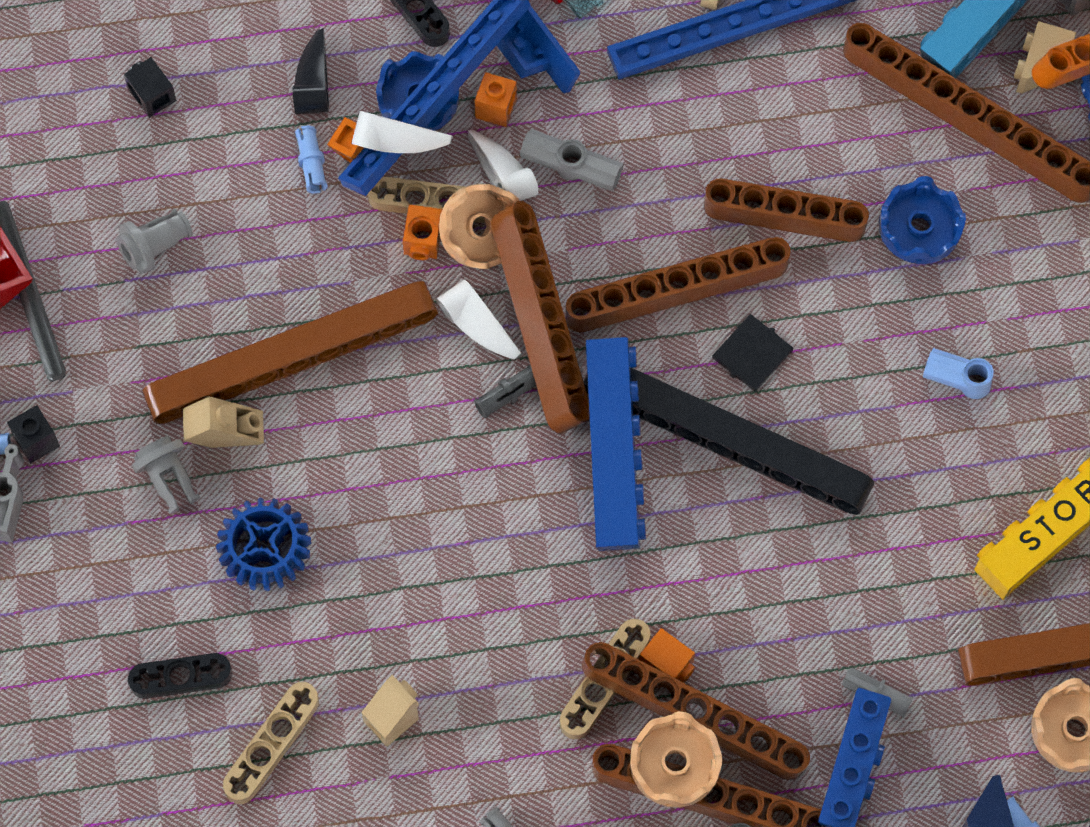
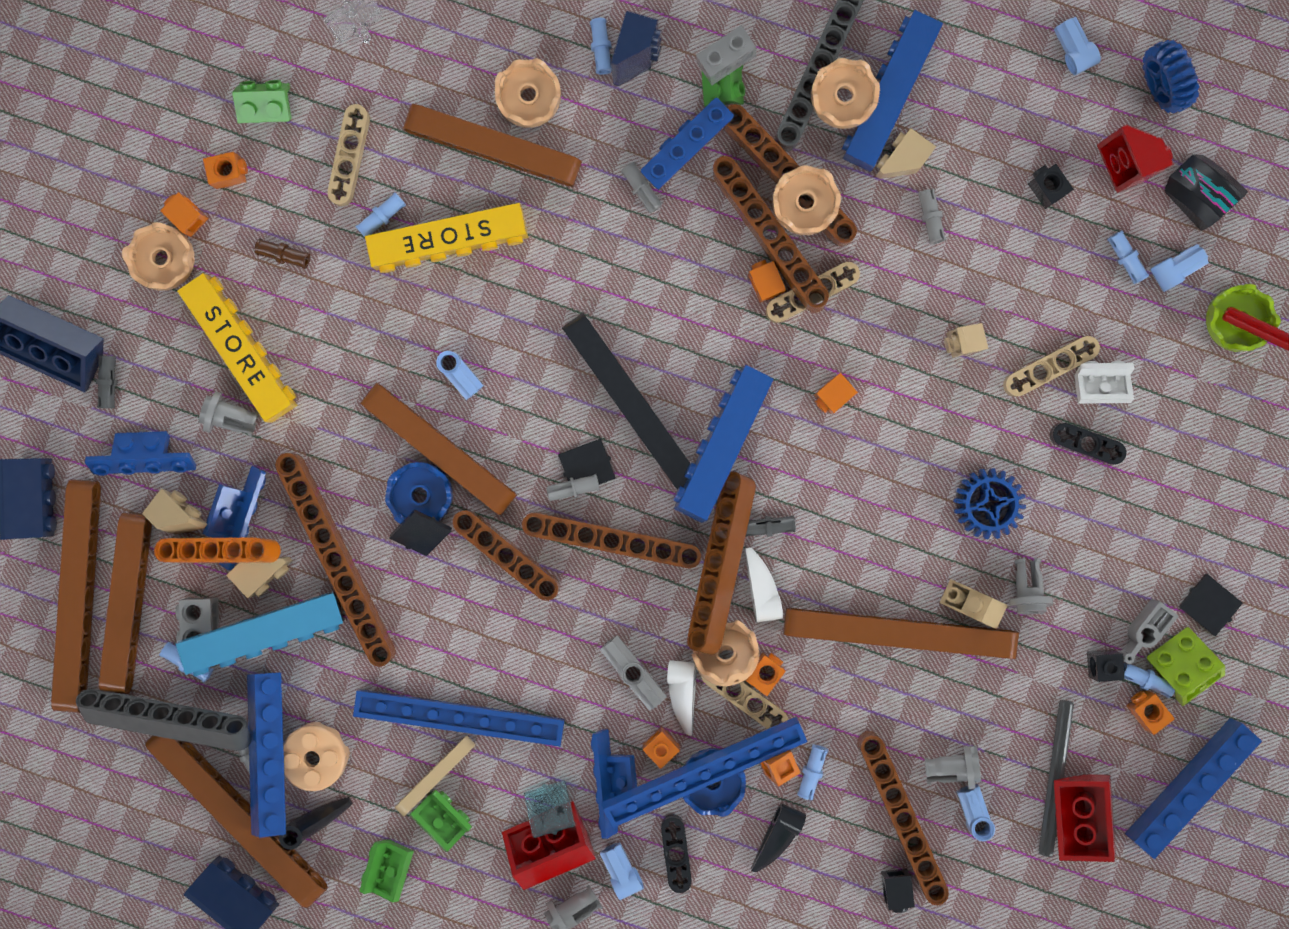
camera: 150 degrees left, 20 degrees up
(104, 207) = (975, 811): none -> light blue piece
(191, 174) = (909, 828): none -> dark orange beam
(197, 752) = (1104, 382): none -> white bracket
(395, 136) = (760, 753): white piece -> none
(513, 573) = (834, 394): none -> orange brick
(754, 317) = (573, 487): none -> light grey axle
(894, 180) = (420, 532): none -> black piece
(931, 282) = (438, 449): none -> dark orange beam

